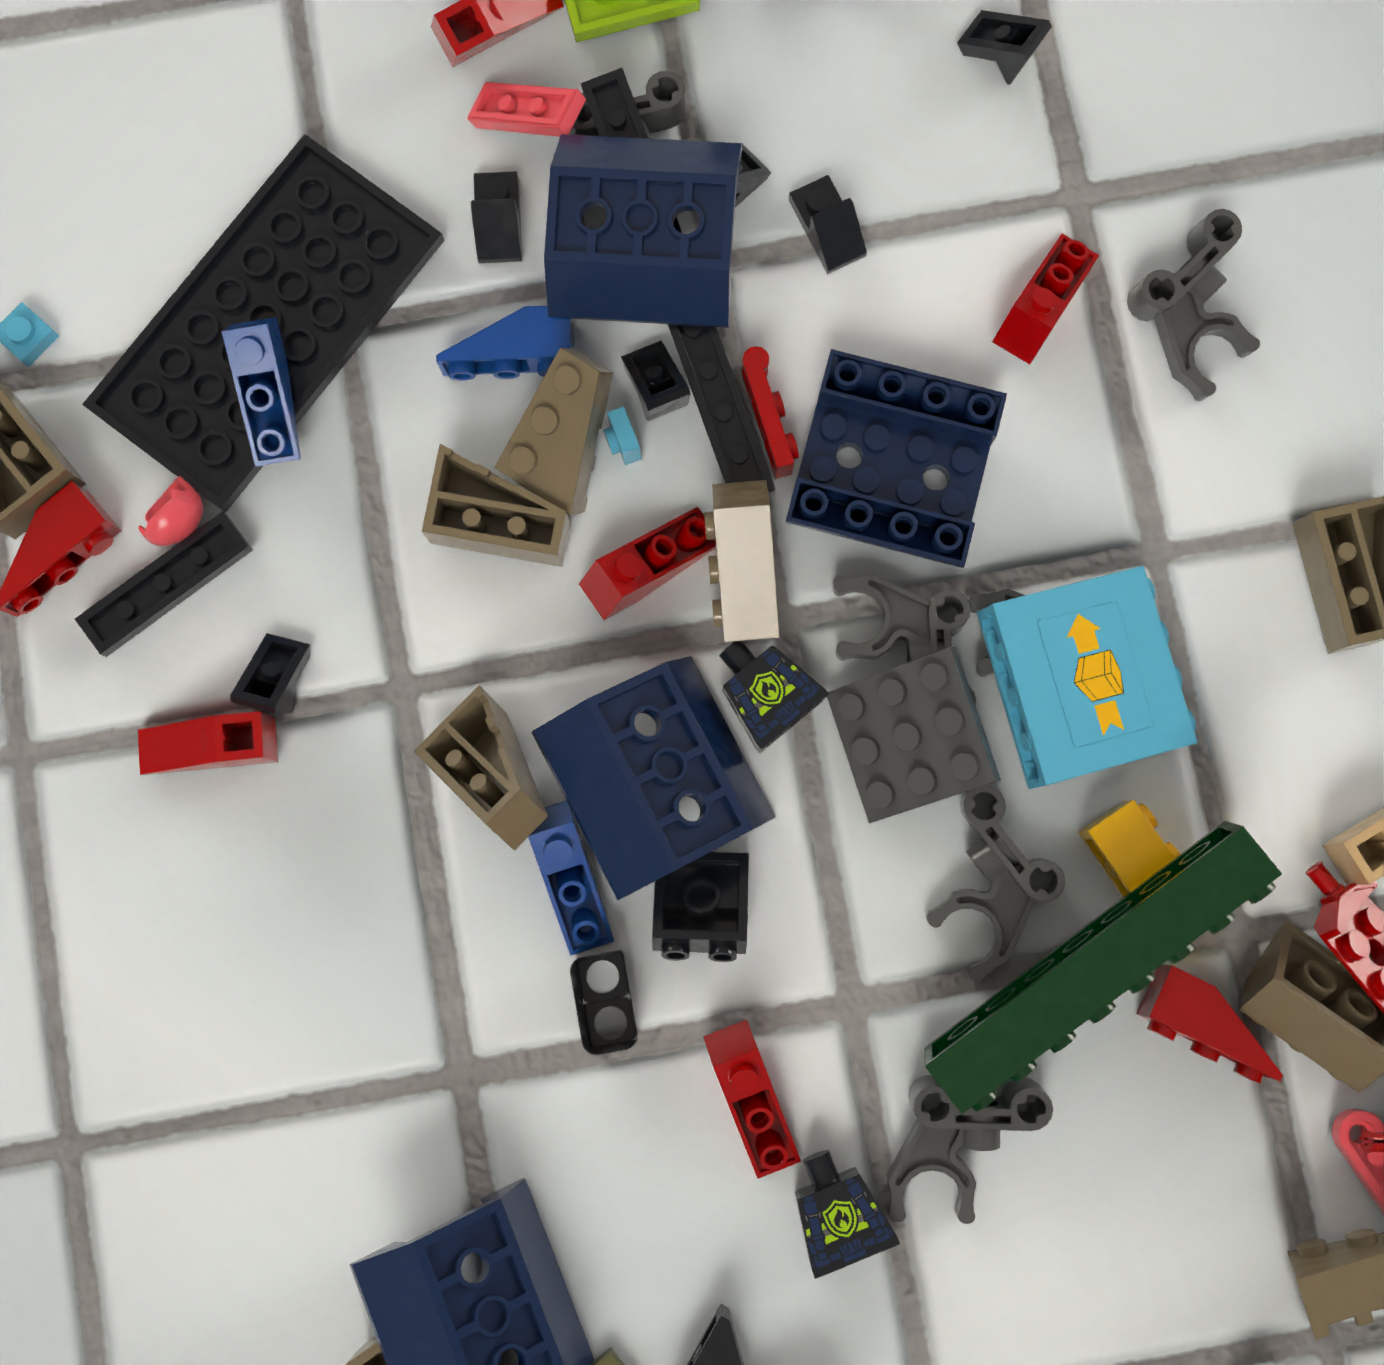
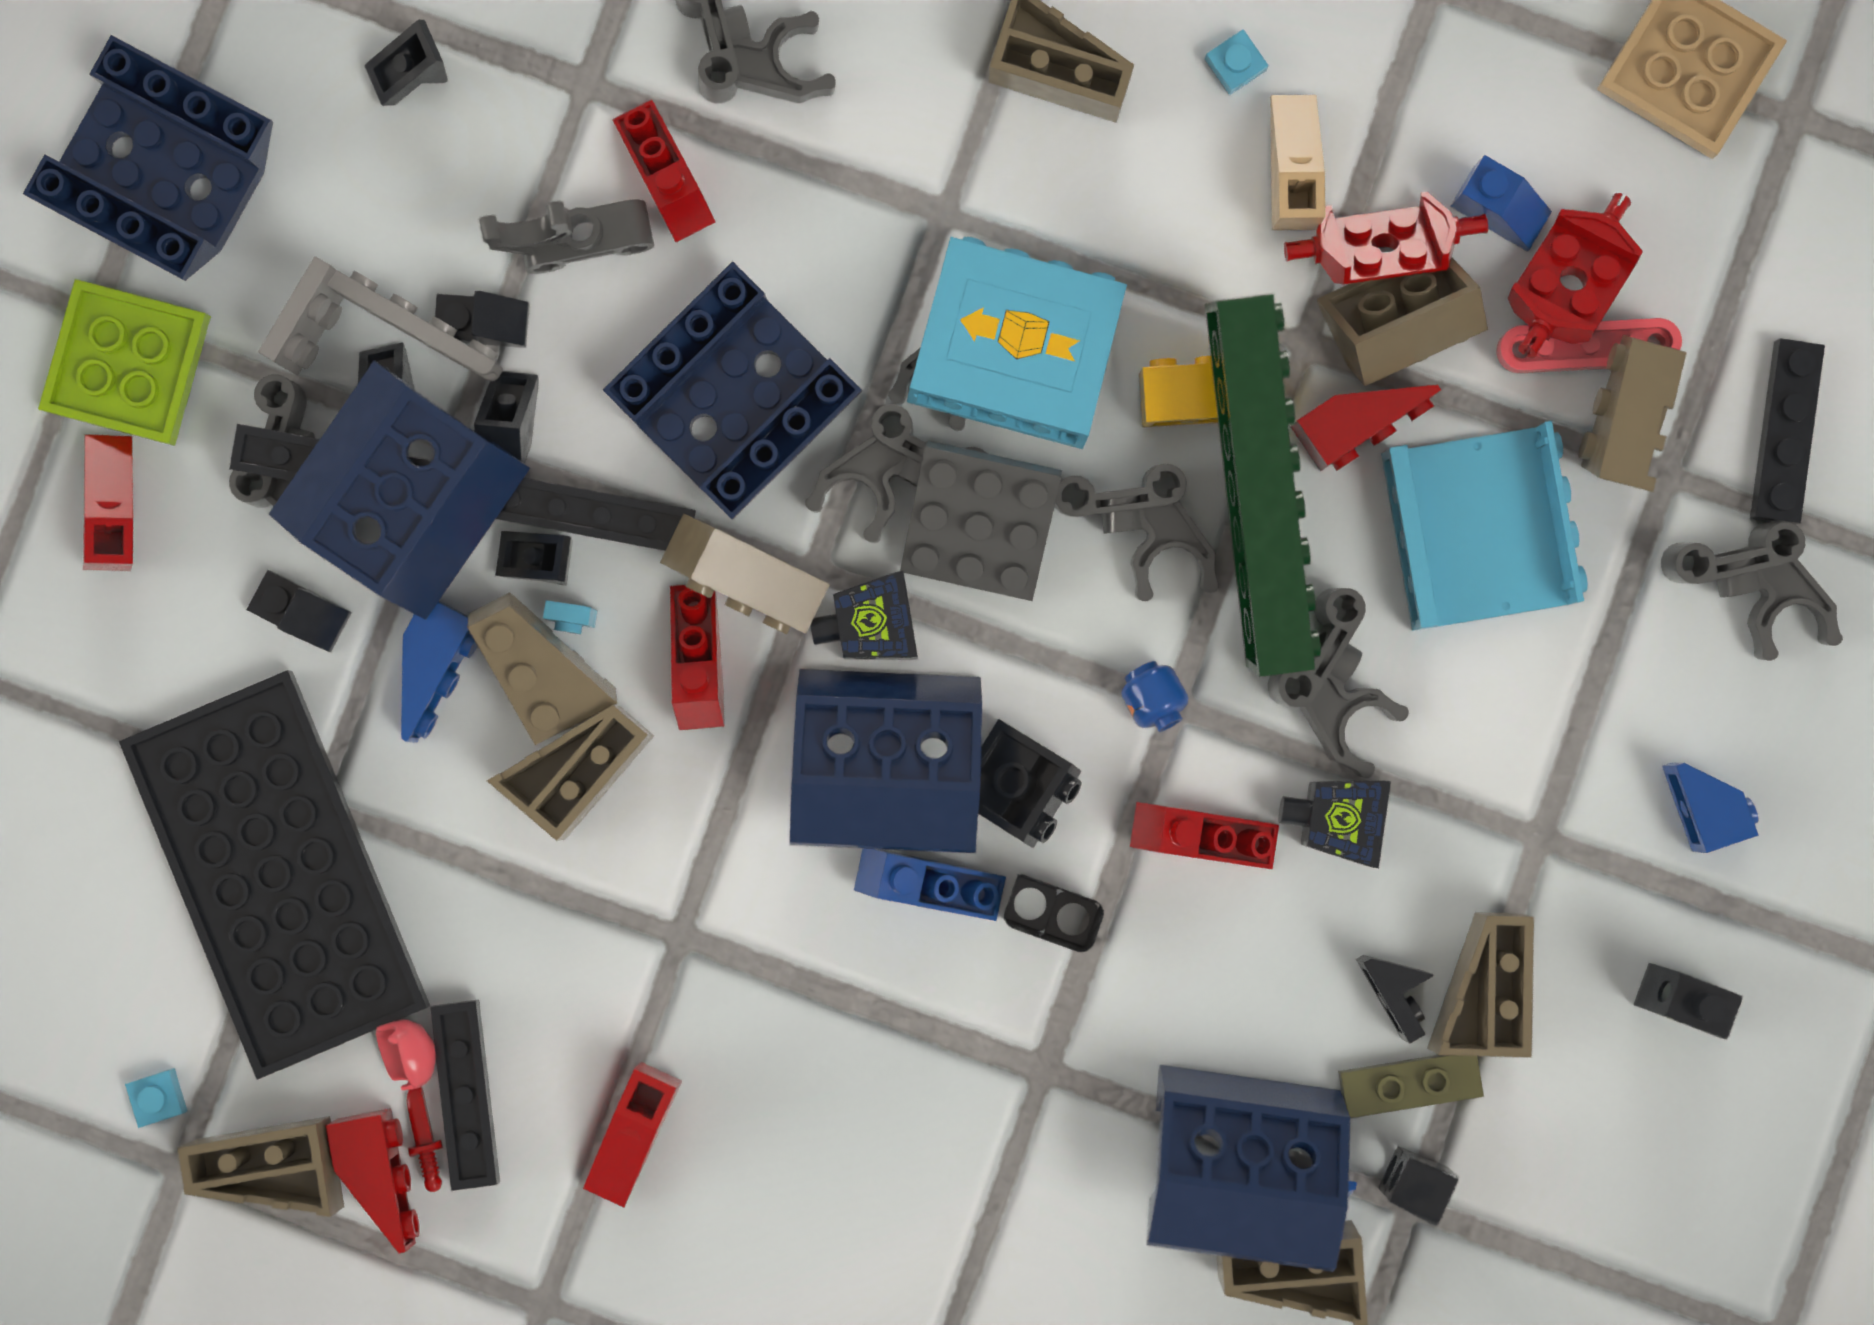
camera: 60 degrees left, 5 degrees up
(108, 572) = (423, 1139): none -> red piece
(263, 389) = (342, 909): blue slope -> none
(272, 675) = (604, 1042): black slope -> none
(485, 767) = (796, 901): dark tan wedge -> none
(526, 109) = (218, 529): coral tile -> none
(756, 81) = (316, 308): none -> light grey bracket
(764, 288) = (509, 412): none -> black slope
(768, 410) = (621, 474): red plate -> none
(849, 981) = (1154, 696): none -> blue head
(933, 231) = (548, 240): none -> dark grey piece
(1179, 1195) = (1484, 527): none -> medium azure panel

